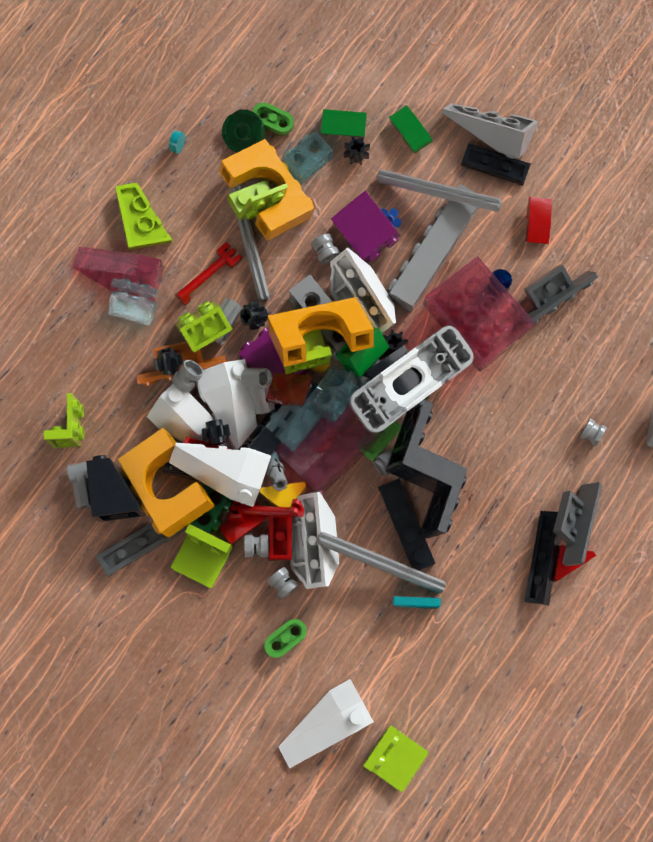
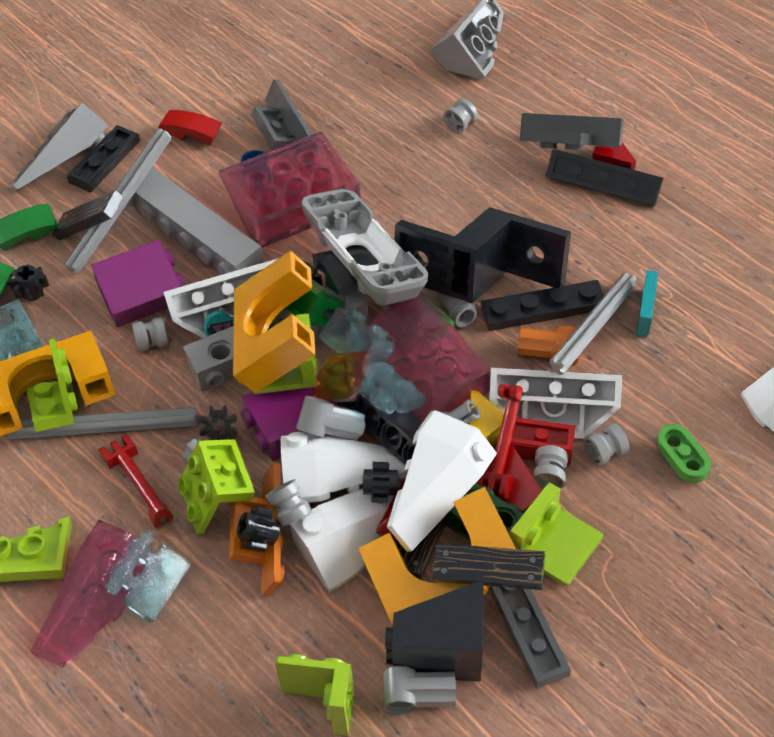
camera: 80 degrees left, 25 degrees down
(151, 512) = (489, 565): none -> black tile
(336, 292) = (217, 322): none -> teal tile
(366, 530) = (543, 342): none -> orange piece
(418, 172) = (87, 215): none -> black tile

